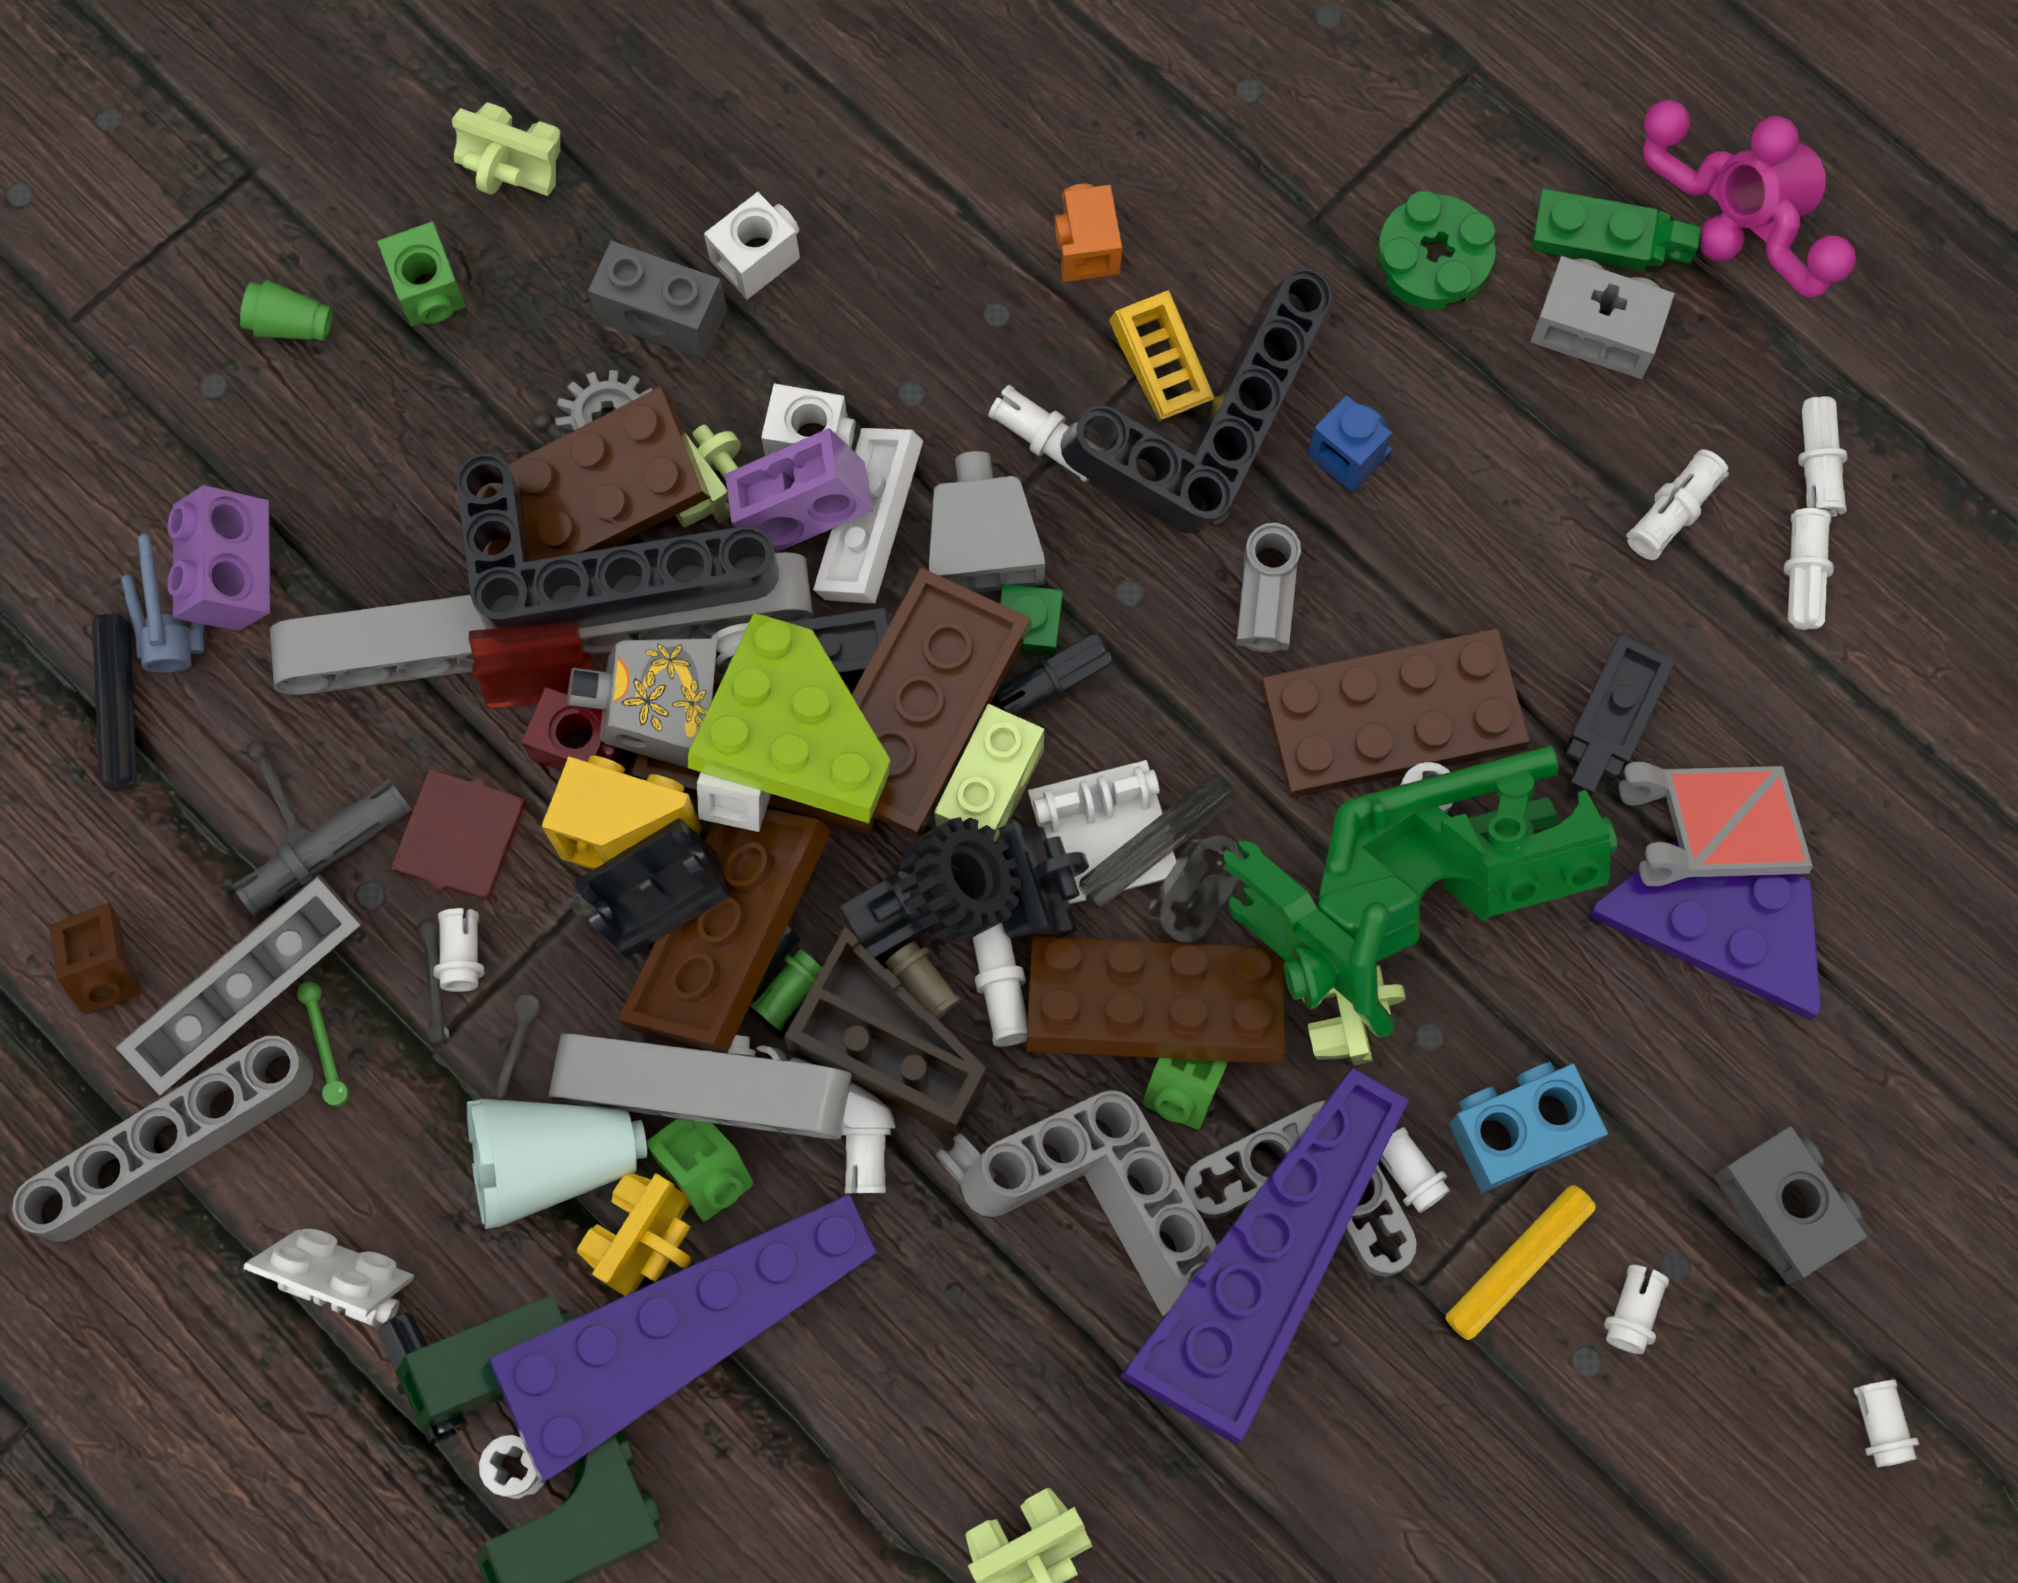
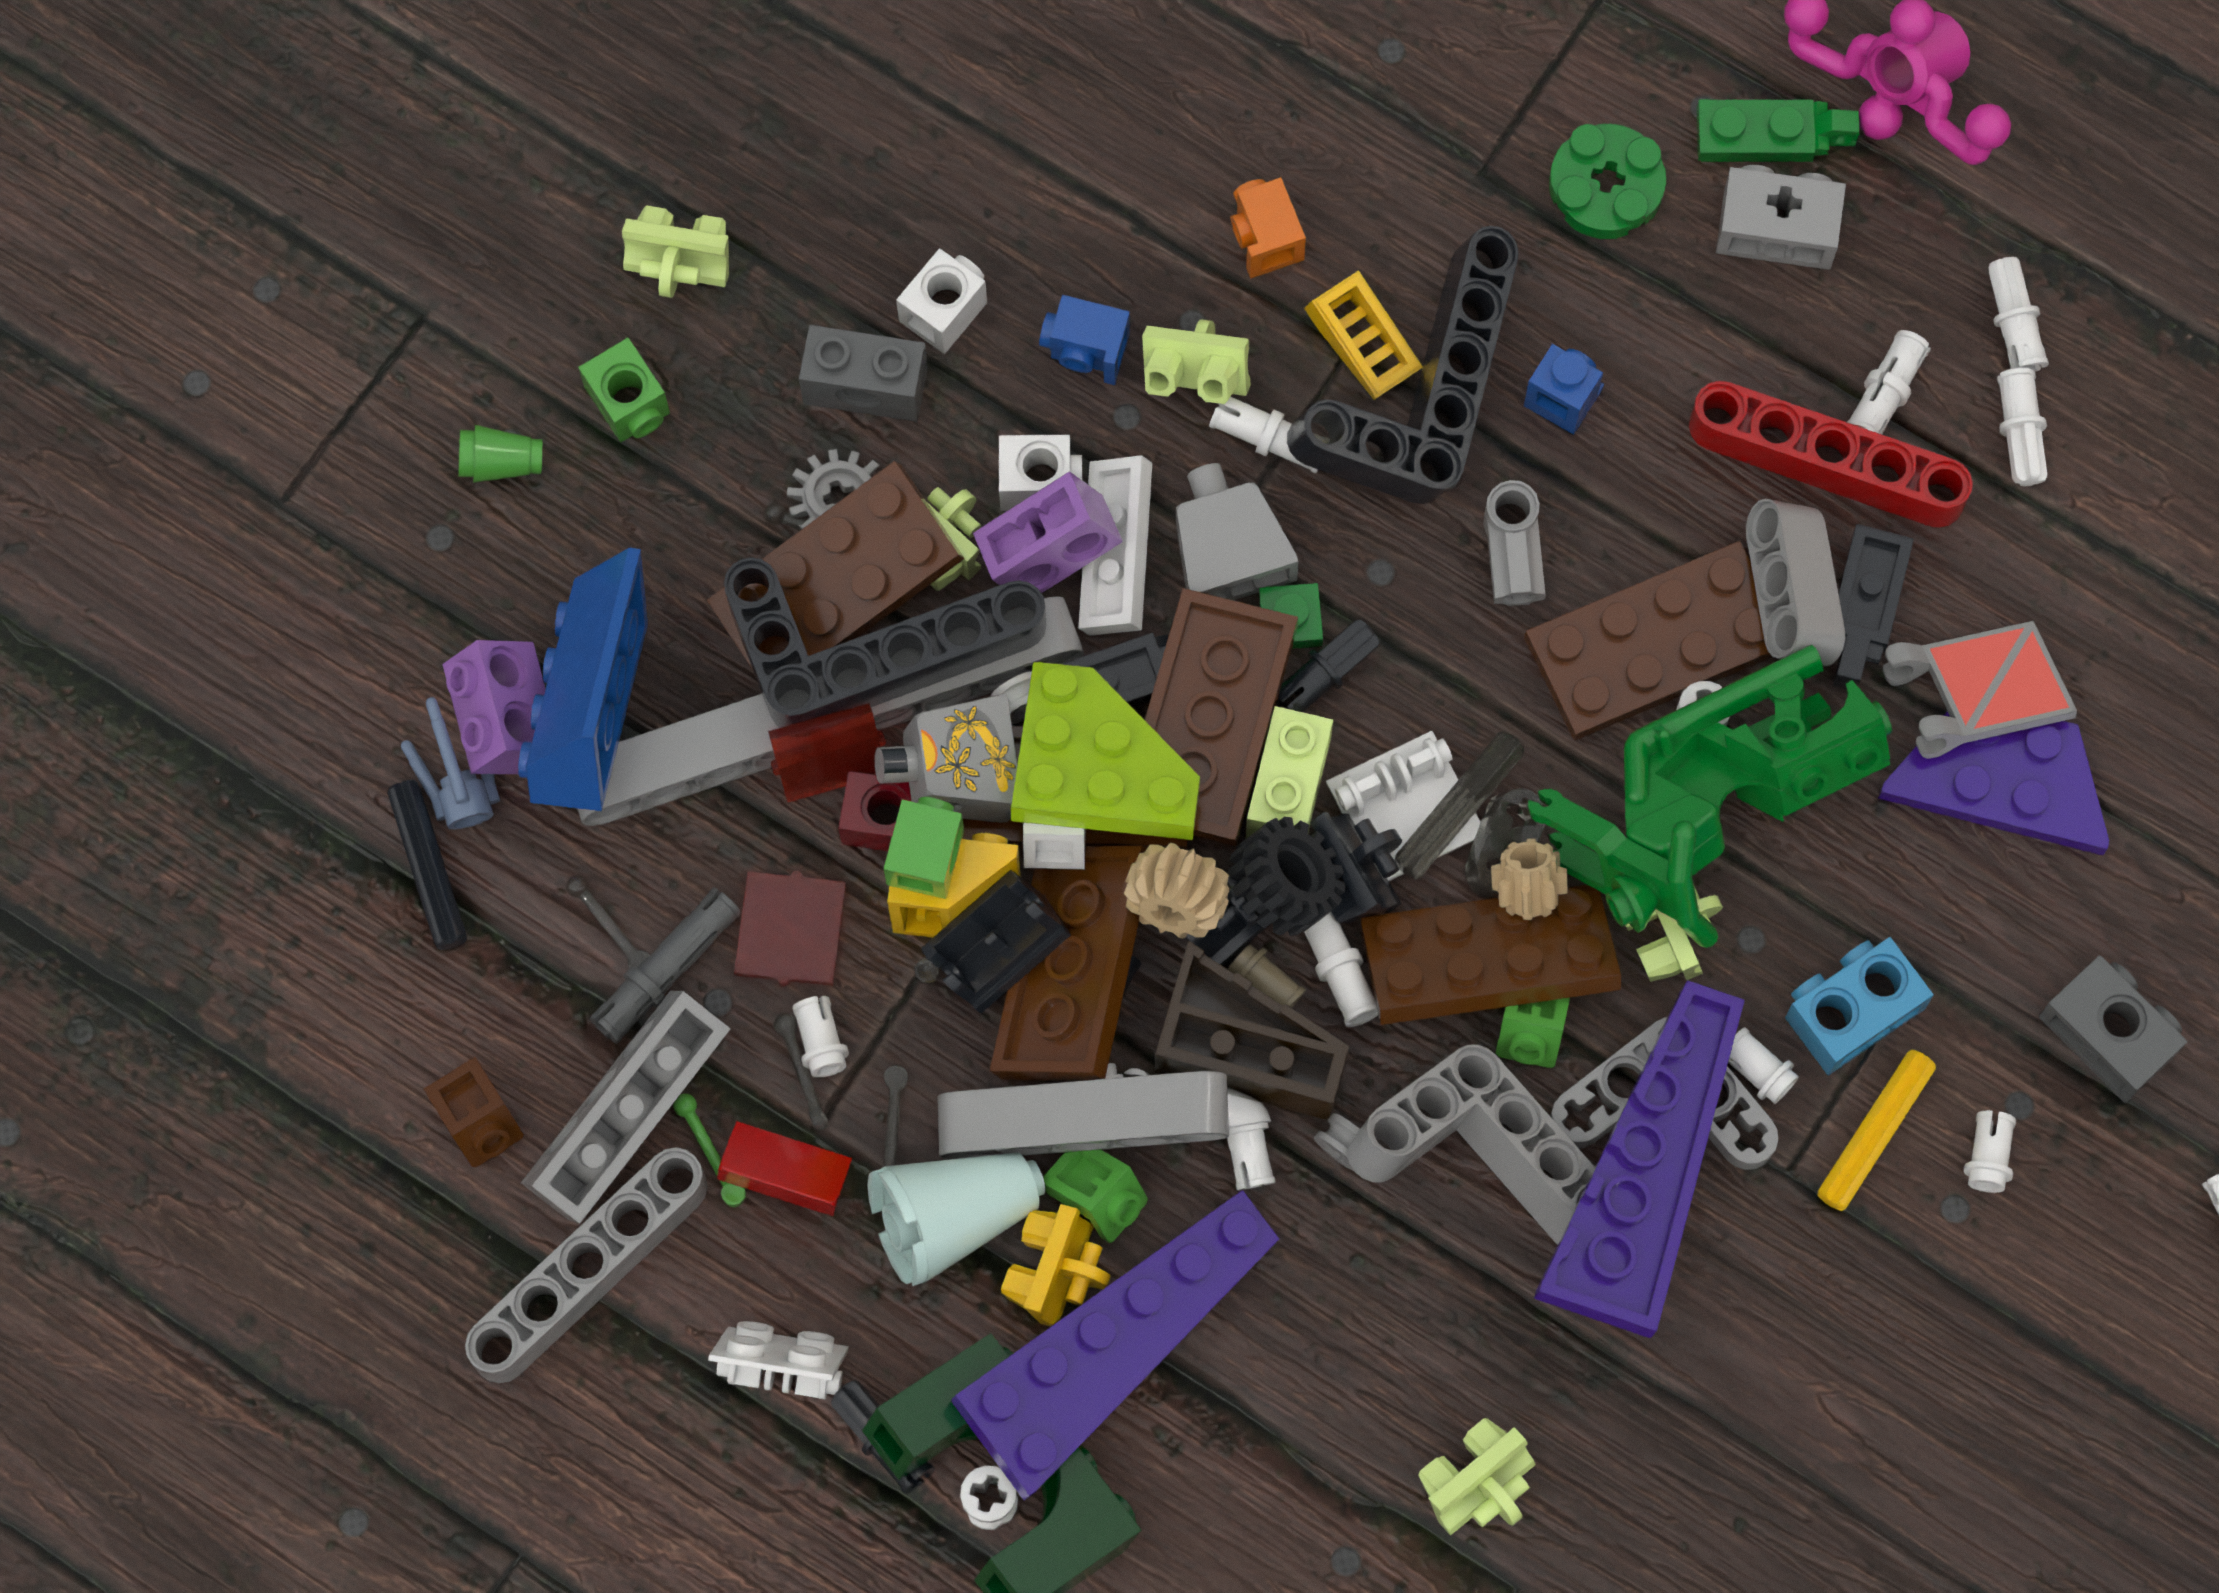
camera: 10 degrees left, 0 degrees up
(304, 554) = (587, 686): none -> blue slope
(390, 1077) = (784, 1168): none -> red slope
(587, 777) = (924, 847): none -> bright green brick
(787, 990) = (1142, 1011): bright green pin -> none
(841, 872) = (1177, 890): none -> tan gear
(887, 306) = (1087, 336): none -> blue brick
(988, 348) = (1195, 361): none -> yellowish green hips
(1210, 930) = (1529, 879): none -> tan gear
(1546, 678) = (1794, 580): none -> light grey beam
(1637, 556) = (1858, 446): none -> red beam

